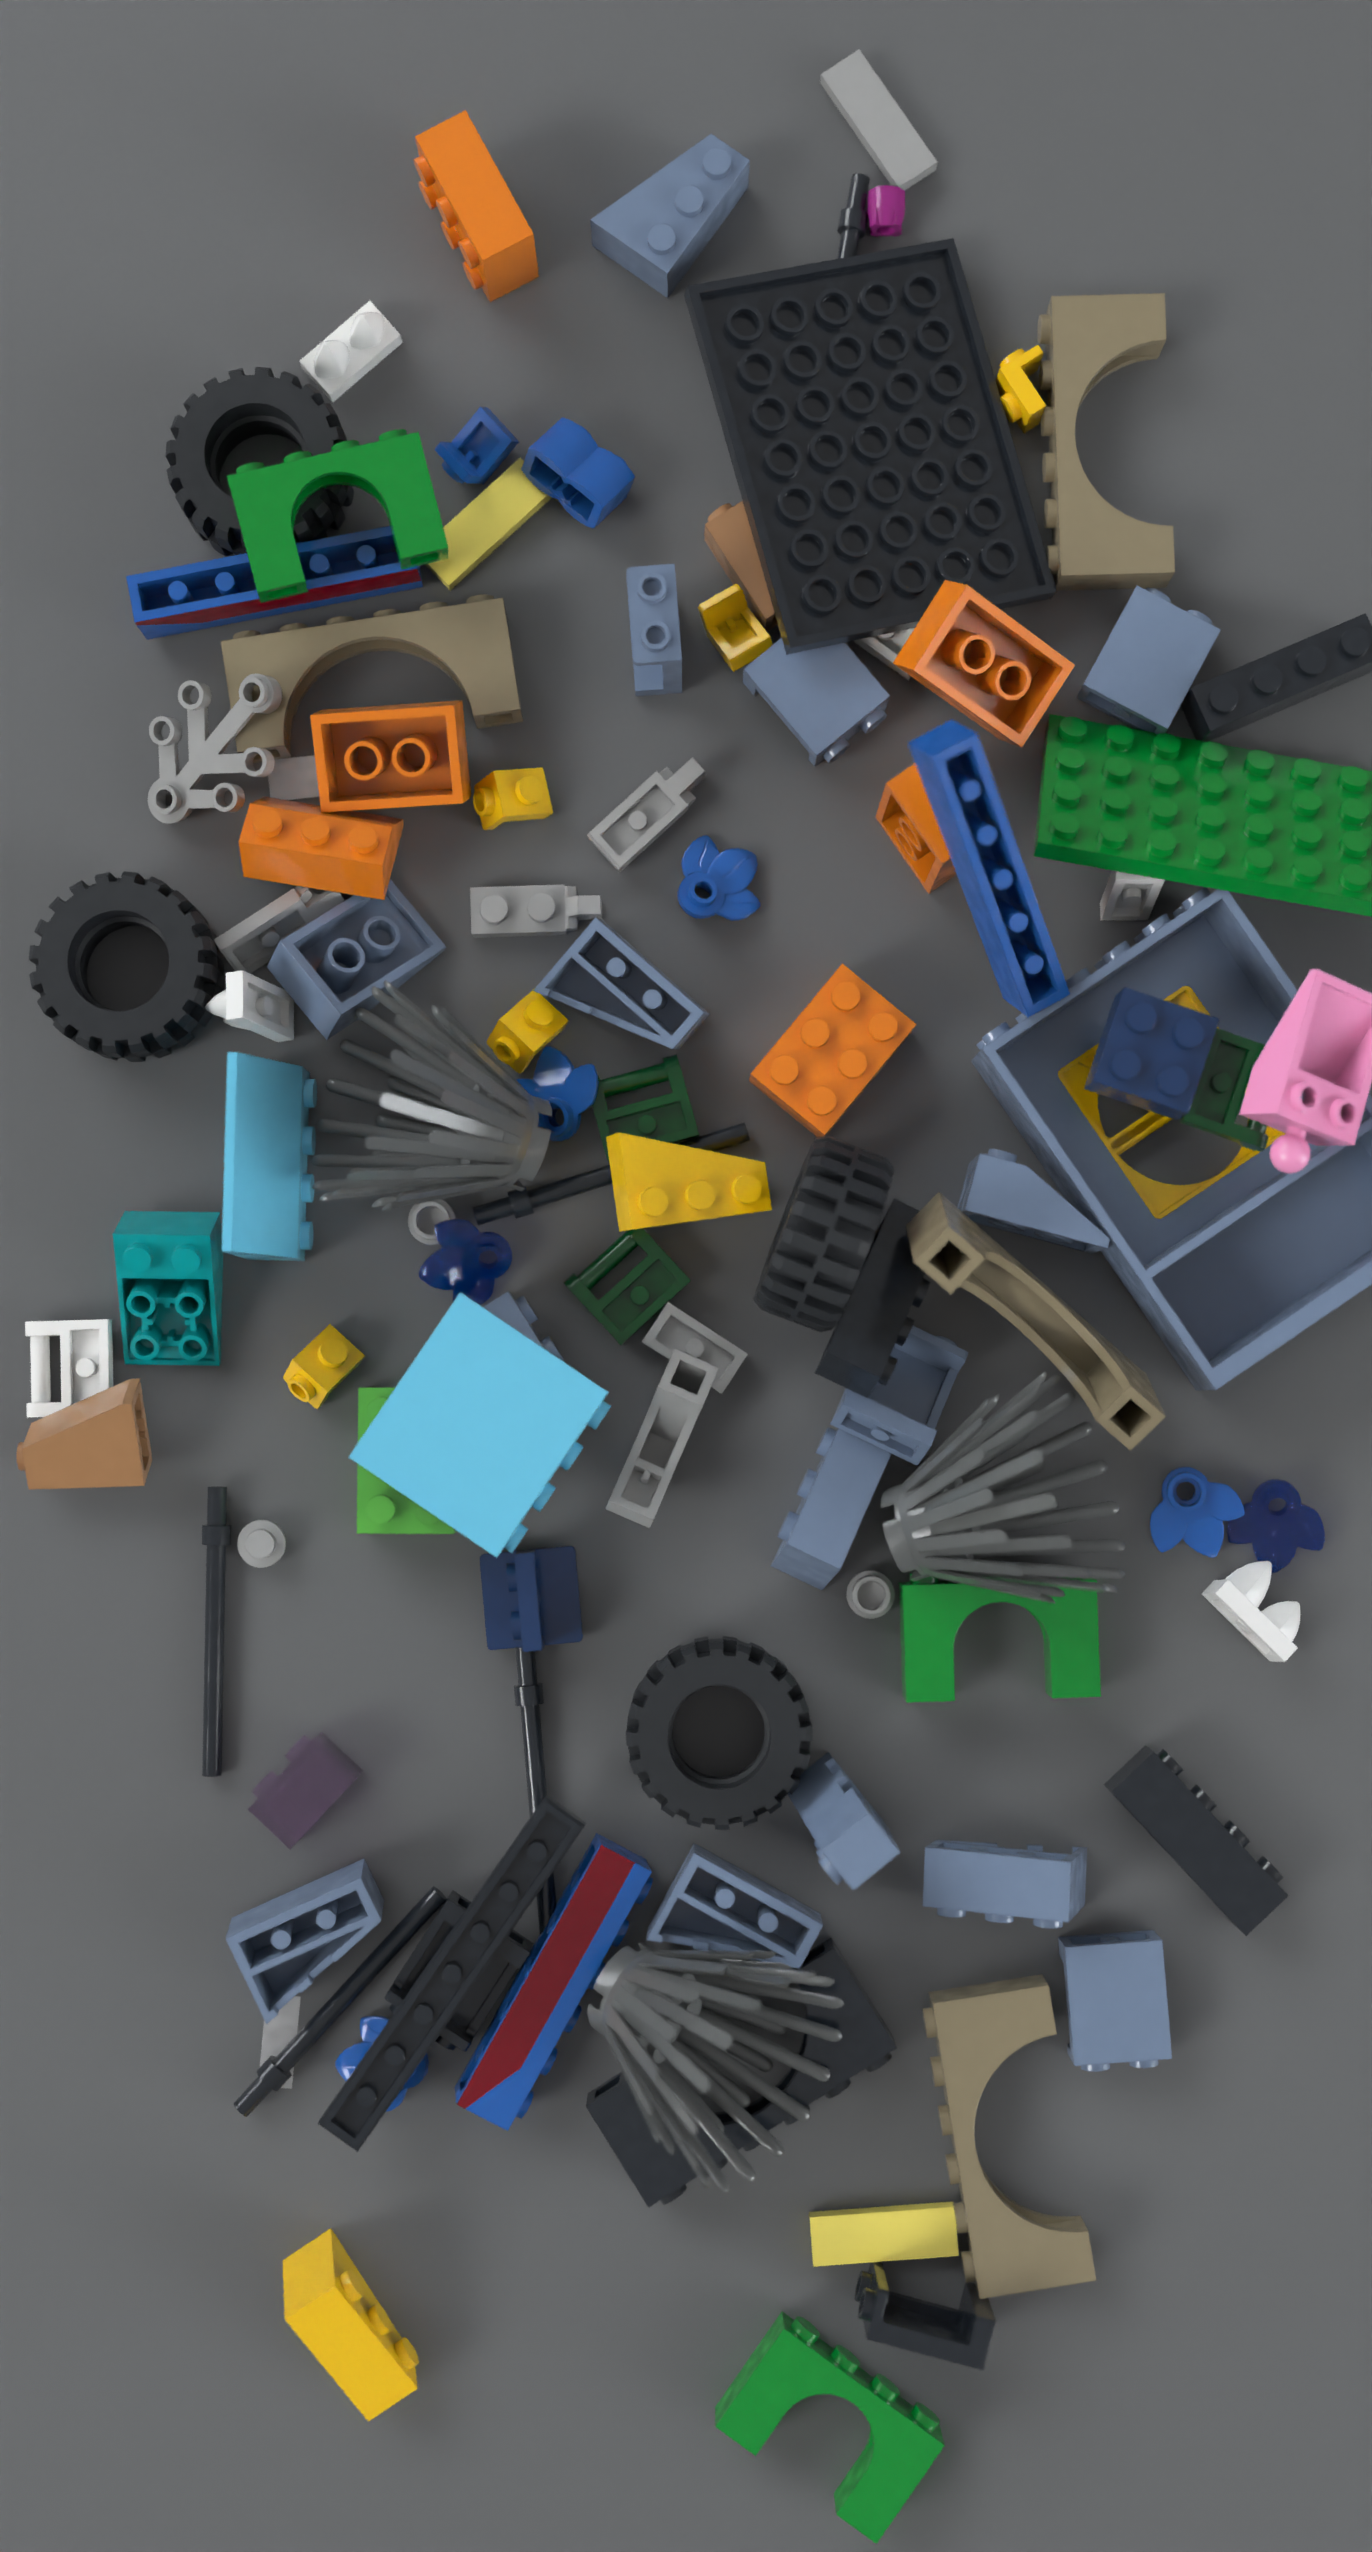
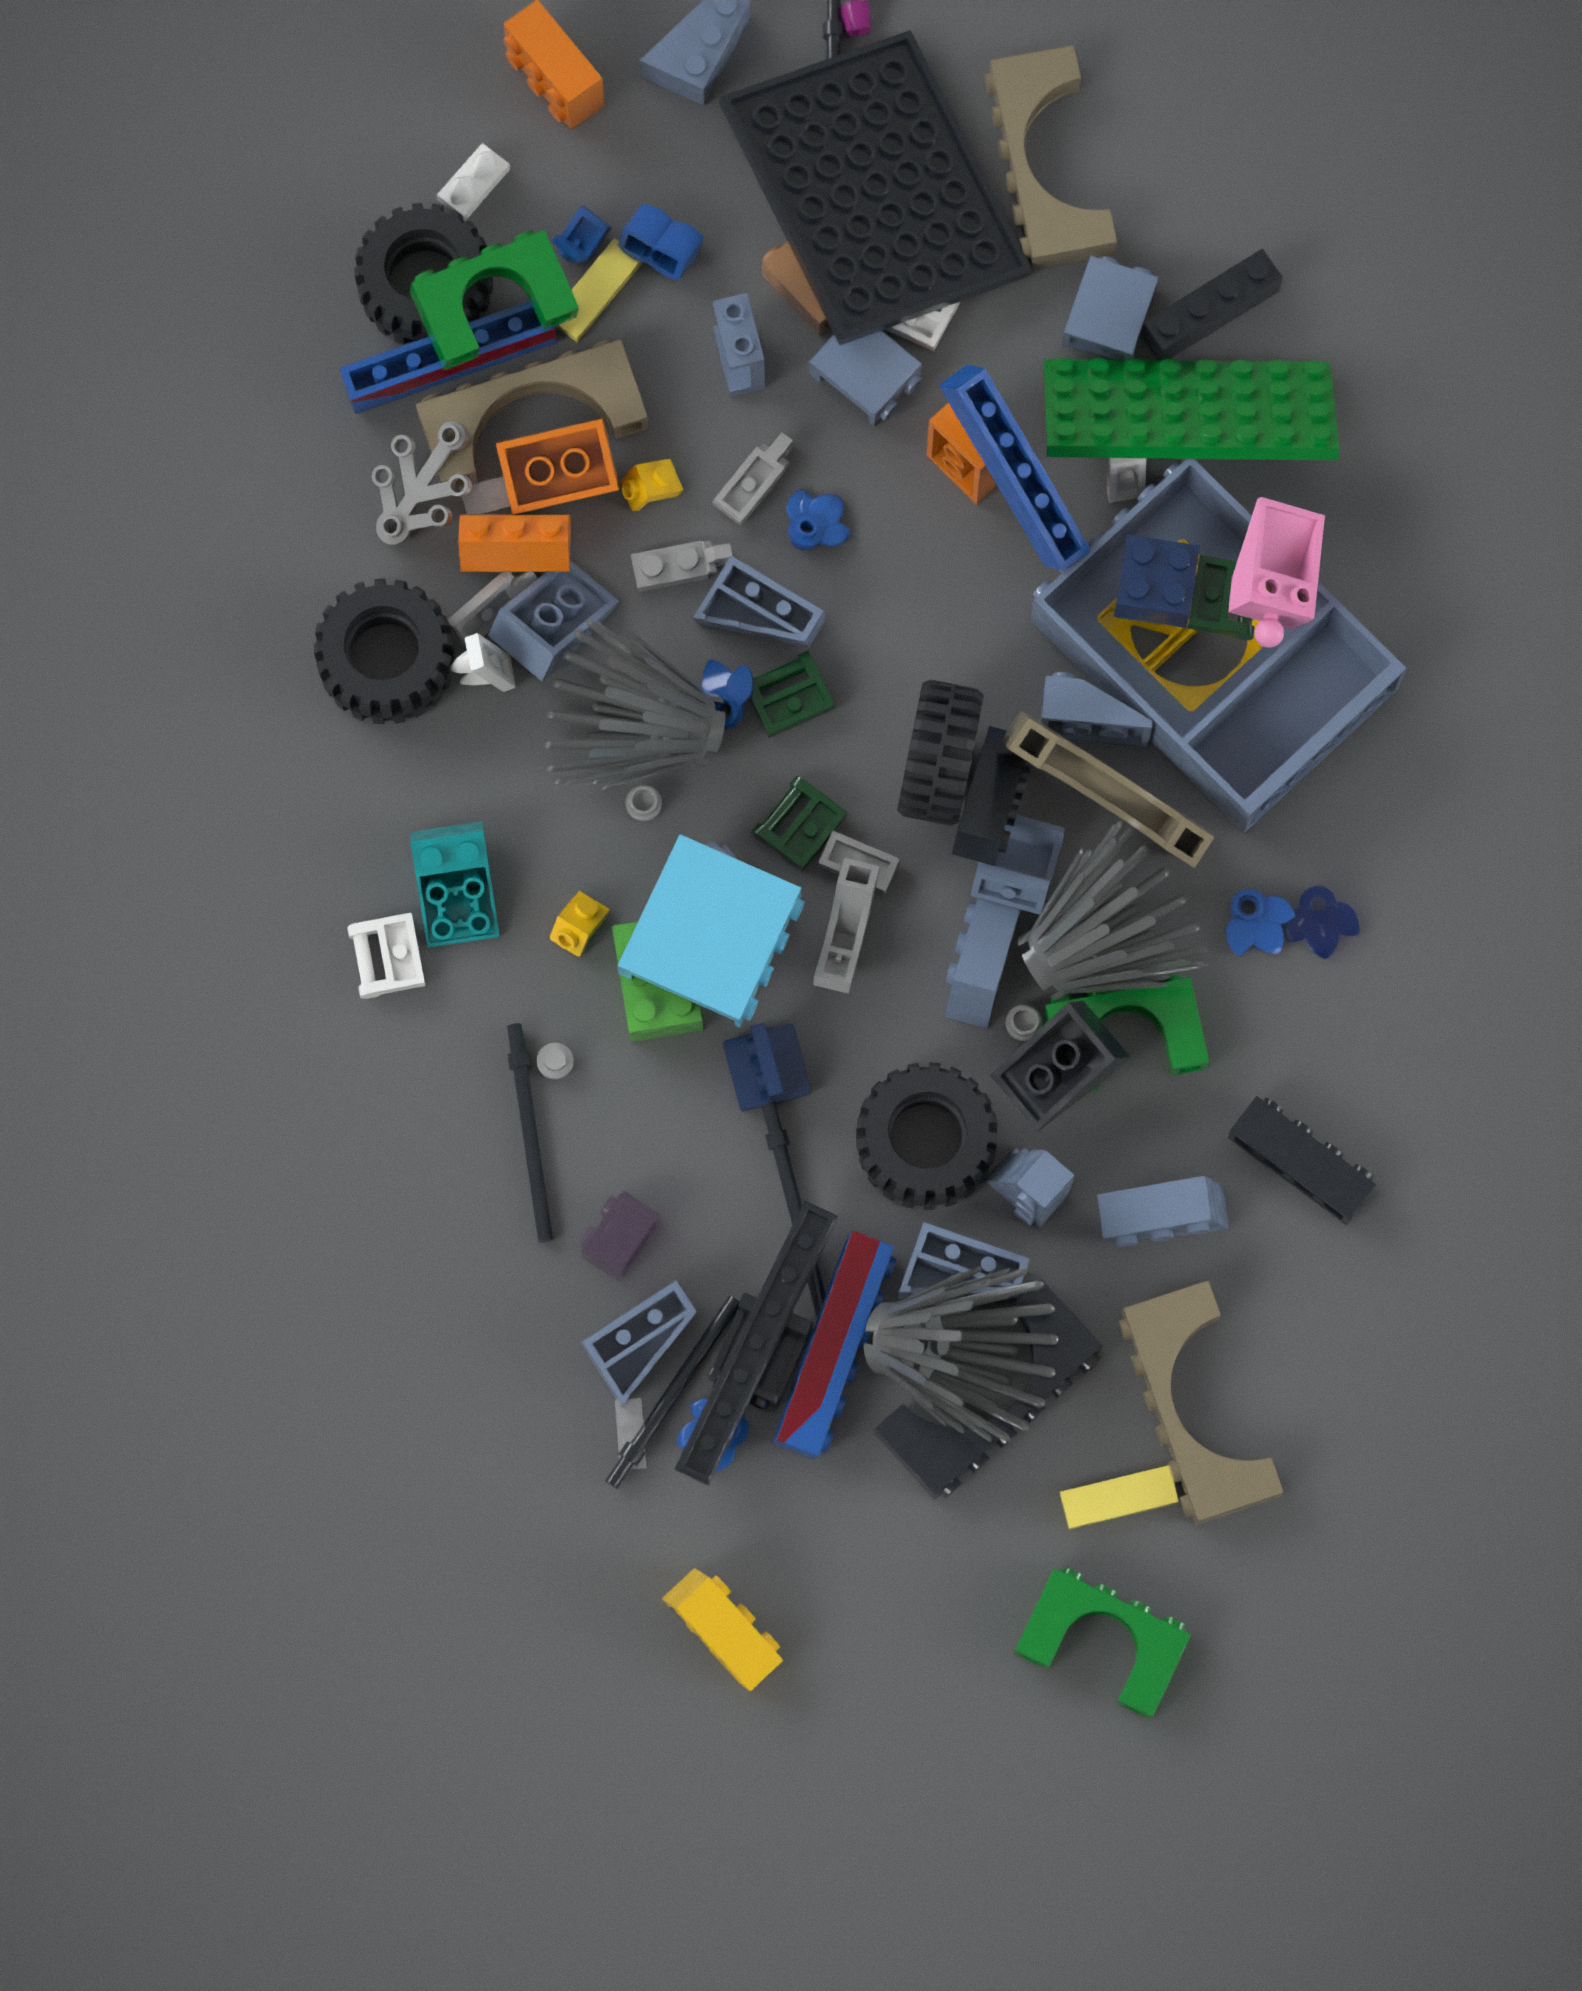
camera: 10 degrees left, 10 degrees down
(90, 1443) = (414, 1002): medium nougat slope -> none
(267, 1159) = (517, 772): medium azure slope -> none
(458, 1264) = (670, 822): clear blue plate -> none
(522, 1202) = (709, 777): black bar -> none
(525, 1031) = (692, 649): yellow bracket -> none
(679, 1184) = (828, 739): yellow wedge -> none
(733, 627) = (796, 334): yellow bracket -> none
(832, 1051) = (924, 627): orange brick -> none
(908, 1675) = (1059, 1064): none -> black slope
(923, 2326) = (1156, 1547): black panel -> none
(983, 663) = (986, 328): orange brick -> none
(1016, 391) = (977, 132): yellow bracket -> none
(1116, 1999) = (1263, 1288): sand blue panel -> none
(1238, 1601) = (1302, 981): white tile -> none

